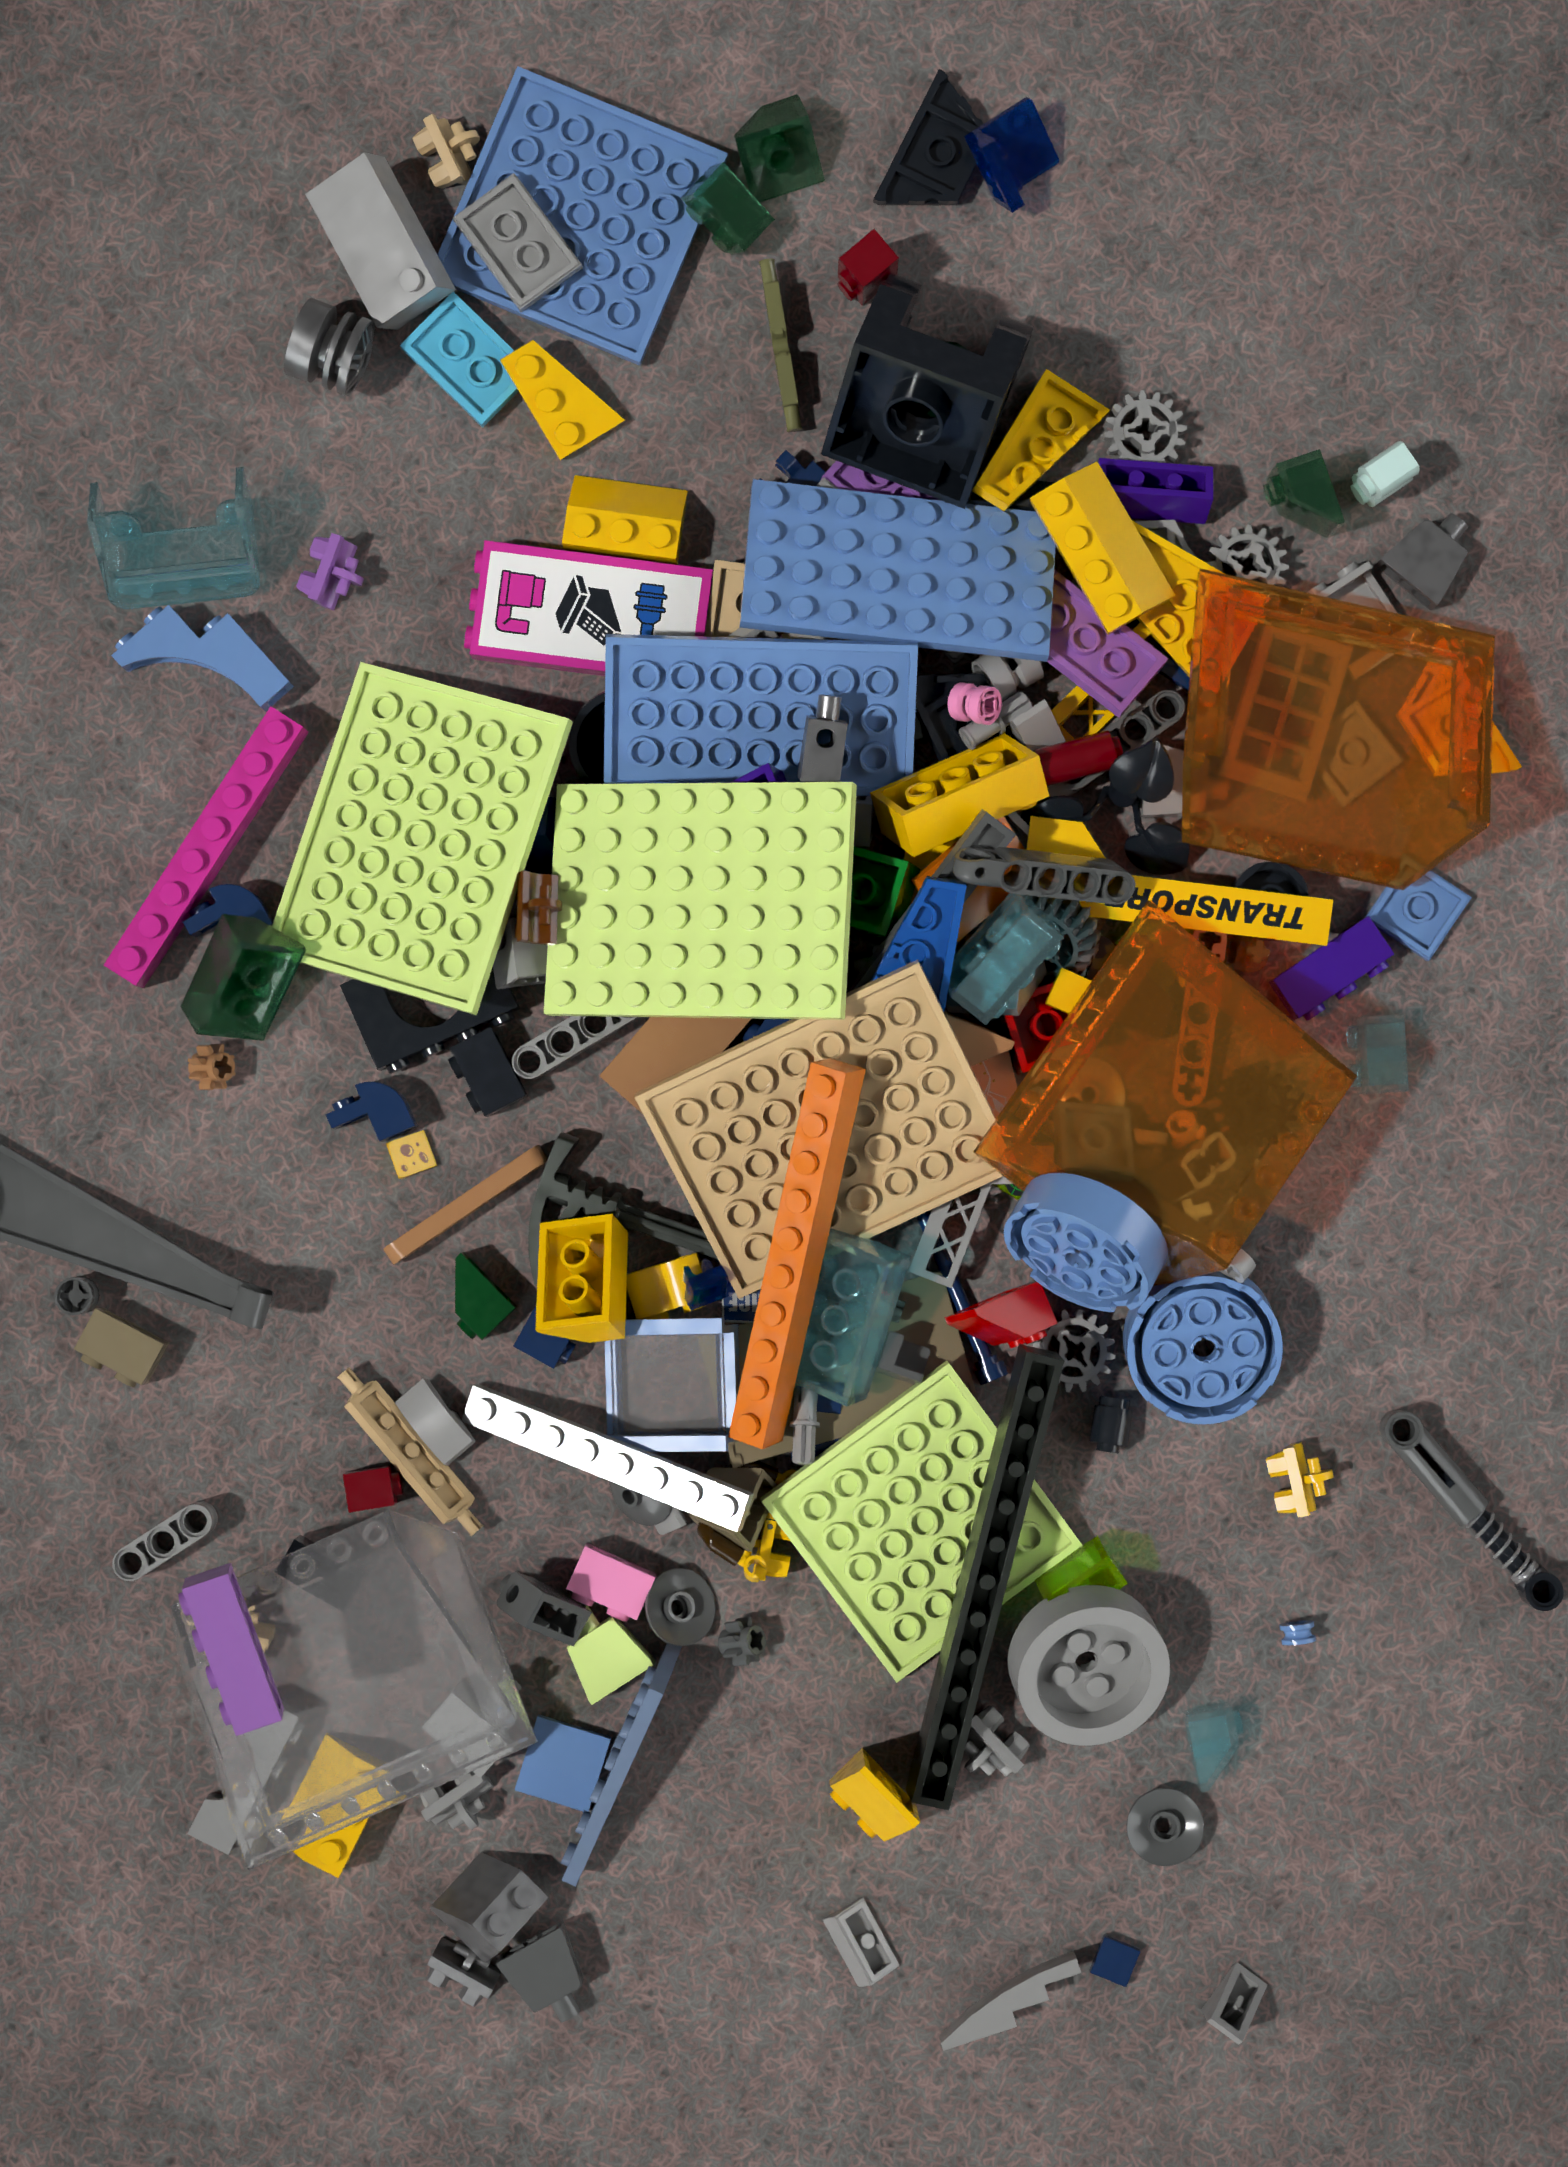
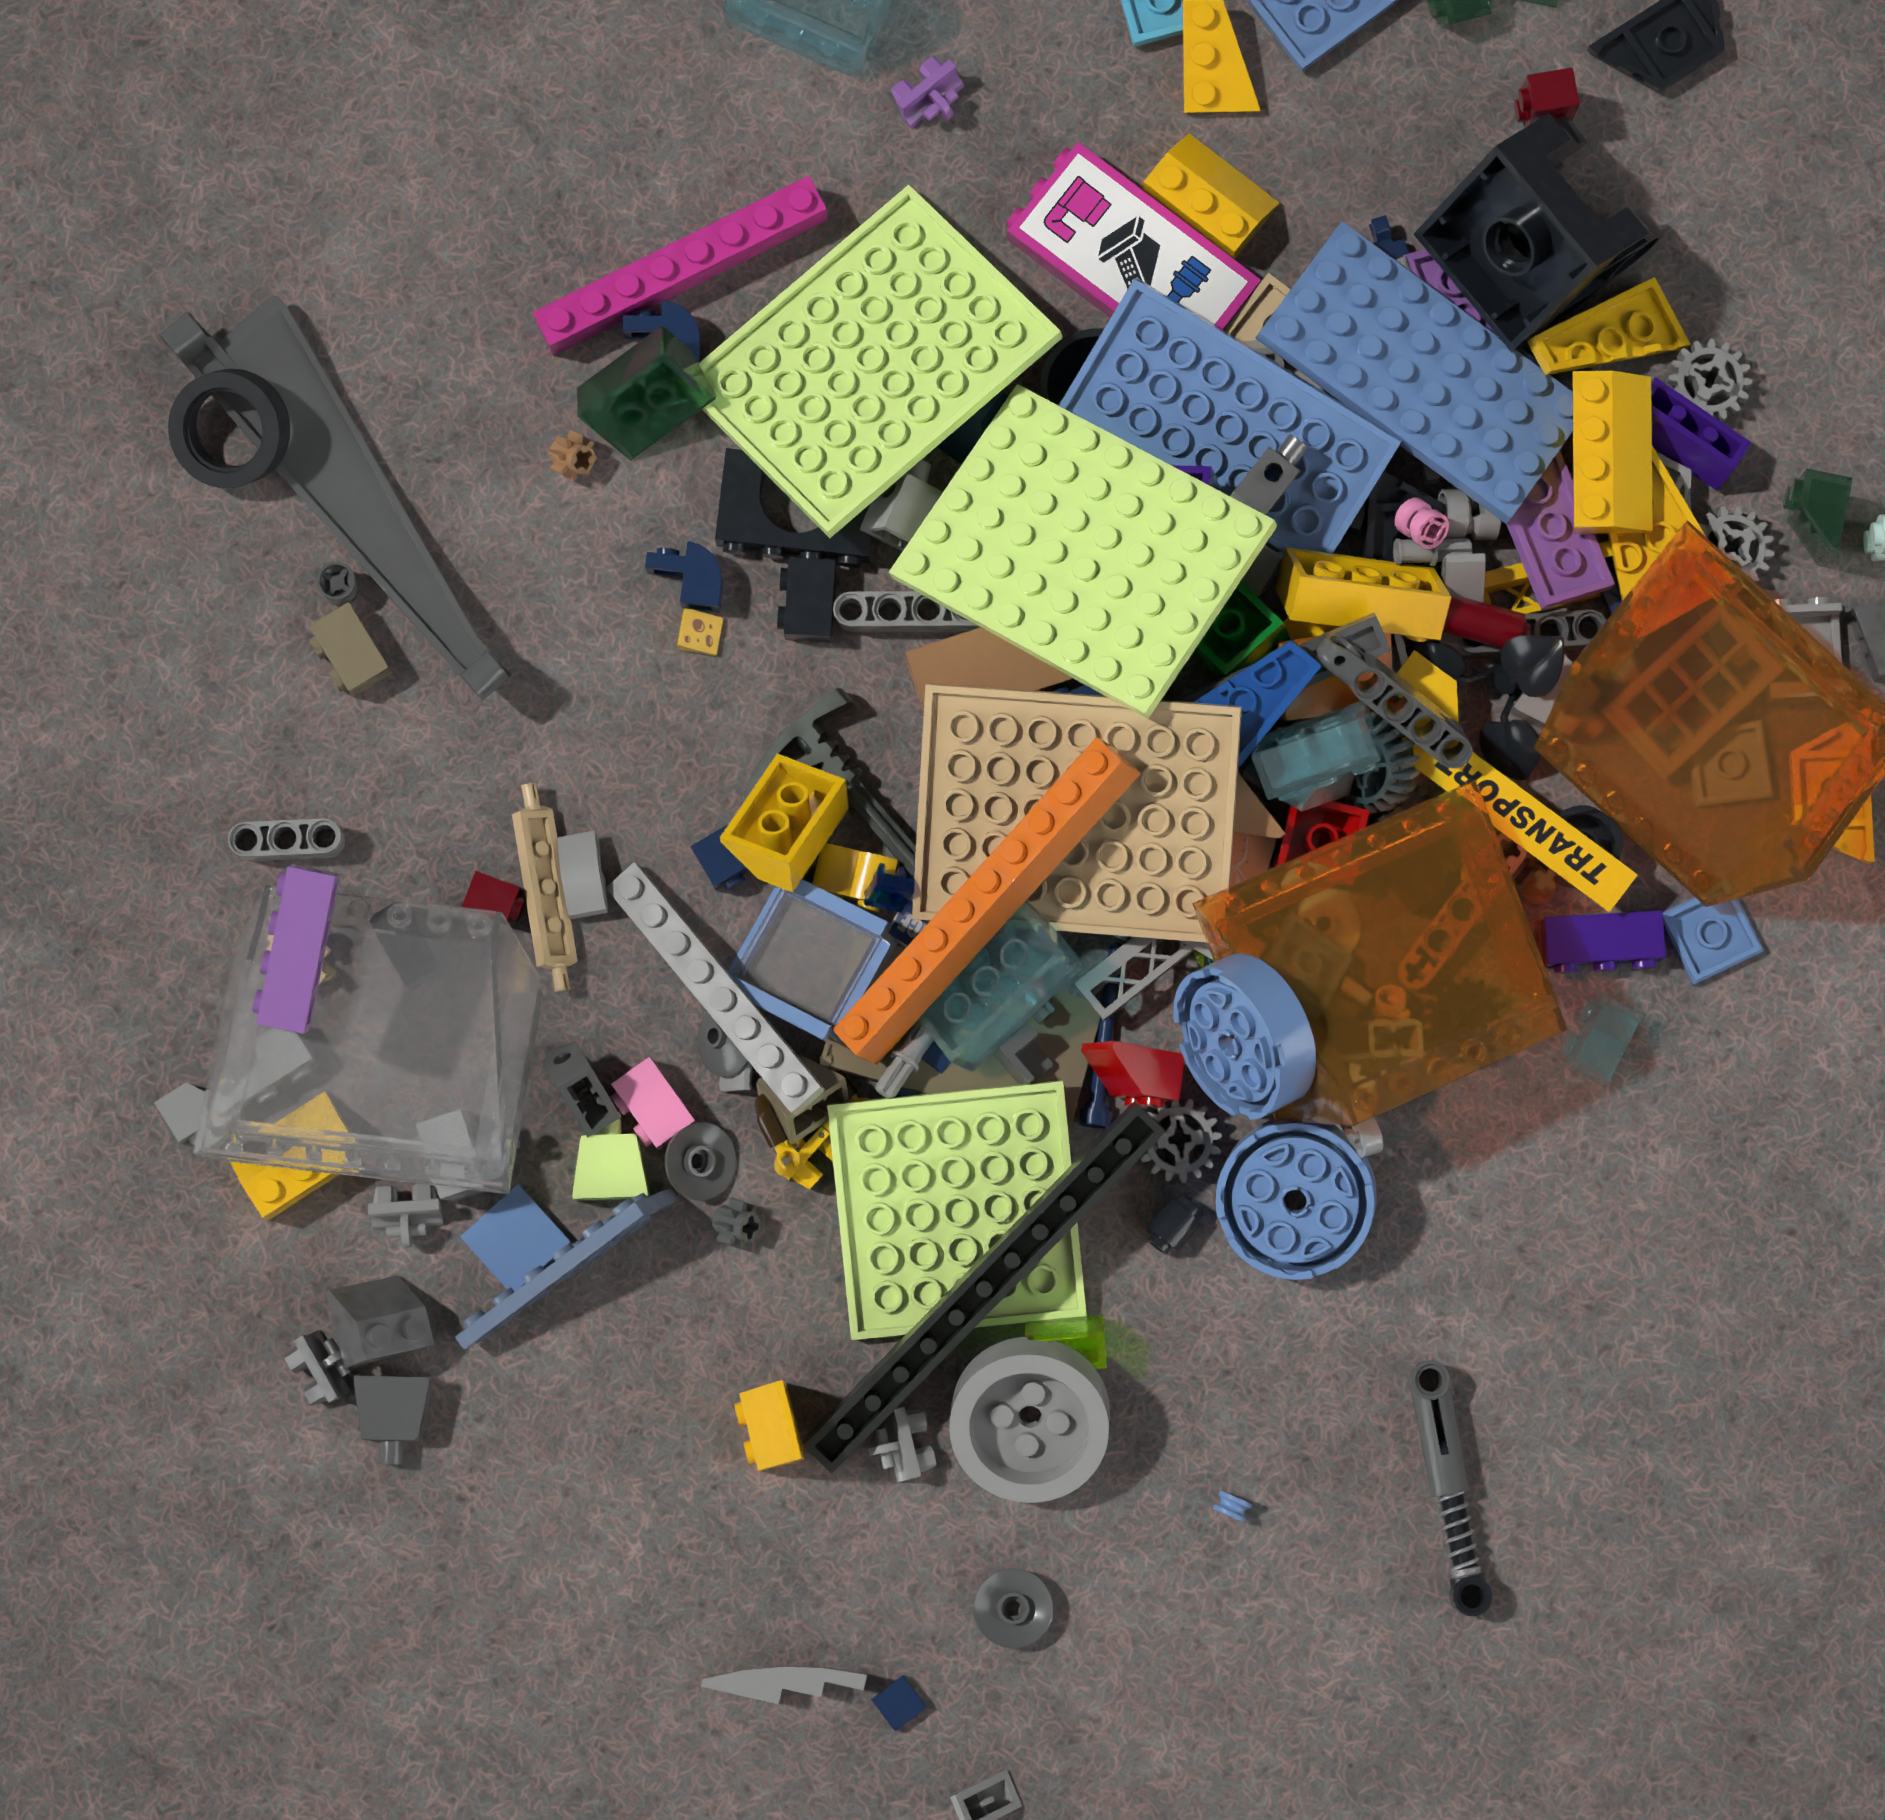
camera: 30 degrees right, 5 degrees down
(221, 649) = (794, 104): medium blue arch -> none
(466, 1204) = (721, 702): medium nougat beam -> none
(478, 1300) = (683, 791): dark green slope -> none
(537, 908) = (937, 477): reddish brown hips -> none
(780, 345) = (1434, 124): olive piece -> none
(861, 1943) = (683, 1553): light grey slope -> none
(1012, 152) = (1734, 74): clear blue bracket -> none
(1066, 990) = (1356, 816): yellow tile -> none
(1212, 1740) = (1100, 1555): clear light blue slope -> none
(1300, 1495) = (1317, 1373): yellow hips -> none

